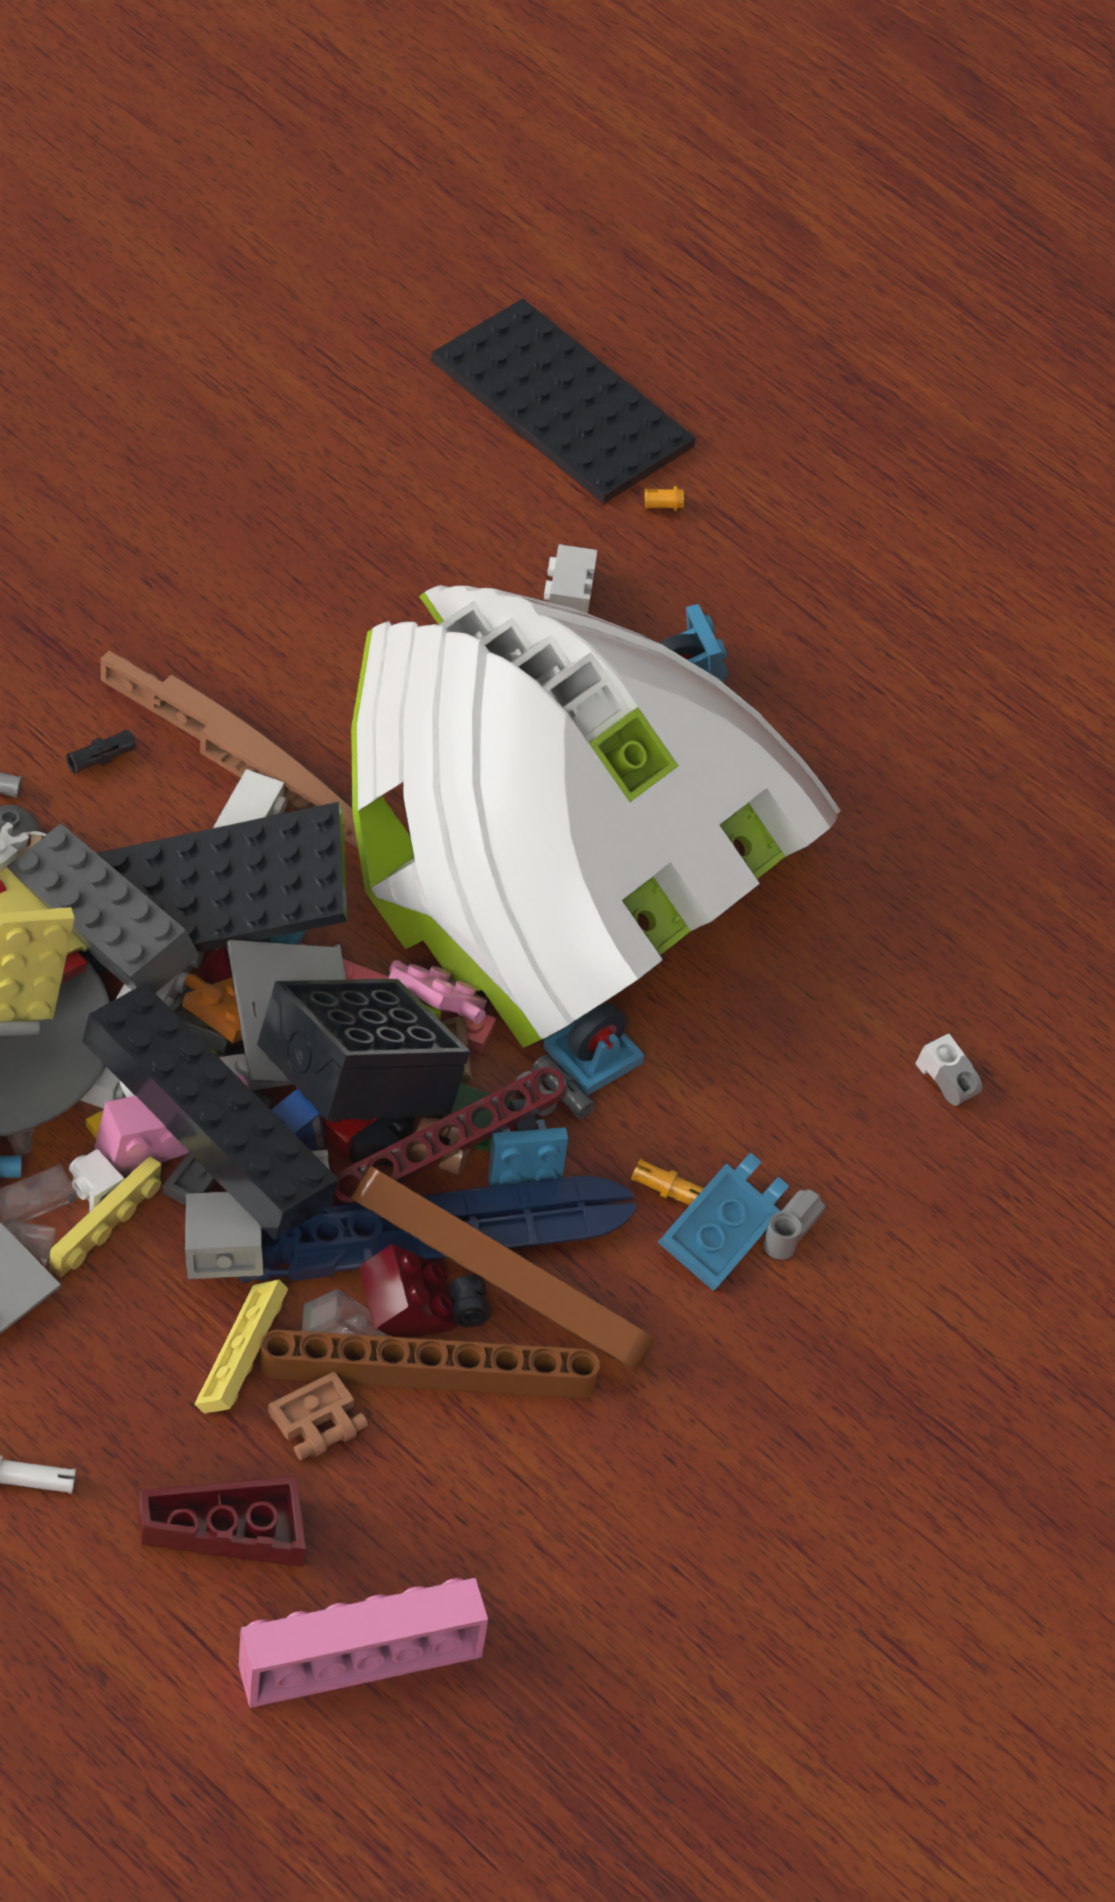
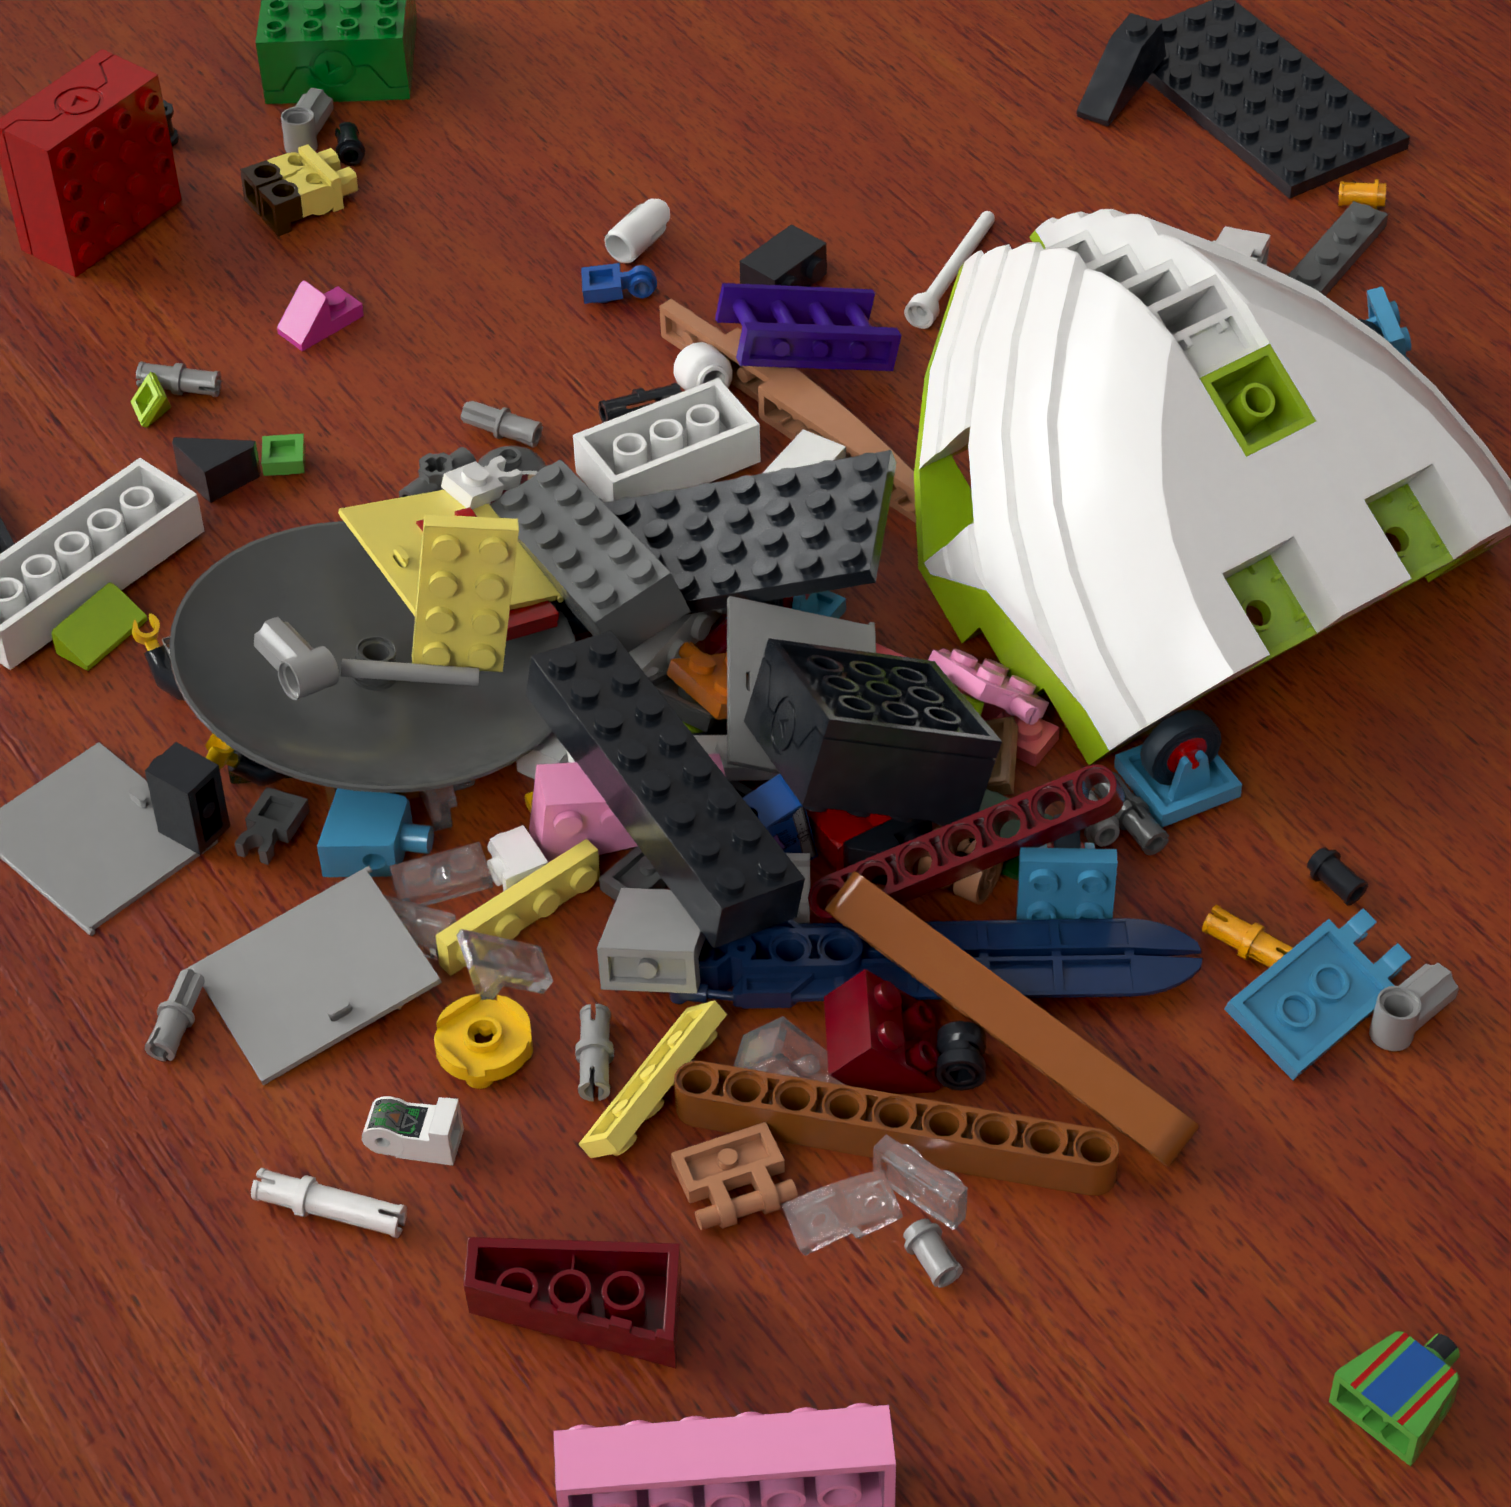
camera: 20 degrees right, 5 degrees down
(45, 634) = (607, 282): none -> blue plate
(61, 579) = (637, 230): none -> white arm
(66, 1408) = (415, 1129): none -> white leg
(96, 1347) = (483, 1062): none -> yellow plate
(103, 1266) = (503, 962): none -> clear slope
(136, 794) = (668, 444): none -> white brick
(147, 716) = (701, 364): none -> white head
(190, 1329) = (594, 1052): none -> light grey pin
(194, 608) = (786, 260): none -> black brick
(233, 691) = (807, 327): none -> dark purple fence
(320, 637) = (924, 307): none -> white piece
(403, 1432) = (842, 1208): none -> clear slope
(448, 388) = (1124, 67): none -> black slope
(457, 1404) = (921, 1182): none -> clear plate
(474, 1456) = (926, 1243): none -> light grey pin
(642, 568) = (1340, 247): none -> dark grey plate
(724, 1123) = (1328, 868): none -> black pin
(820, 1518) = (1399, 1391): none -> bright green torso

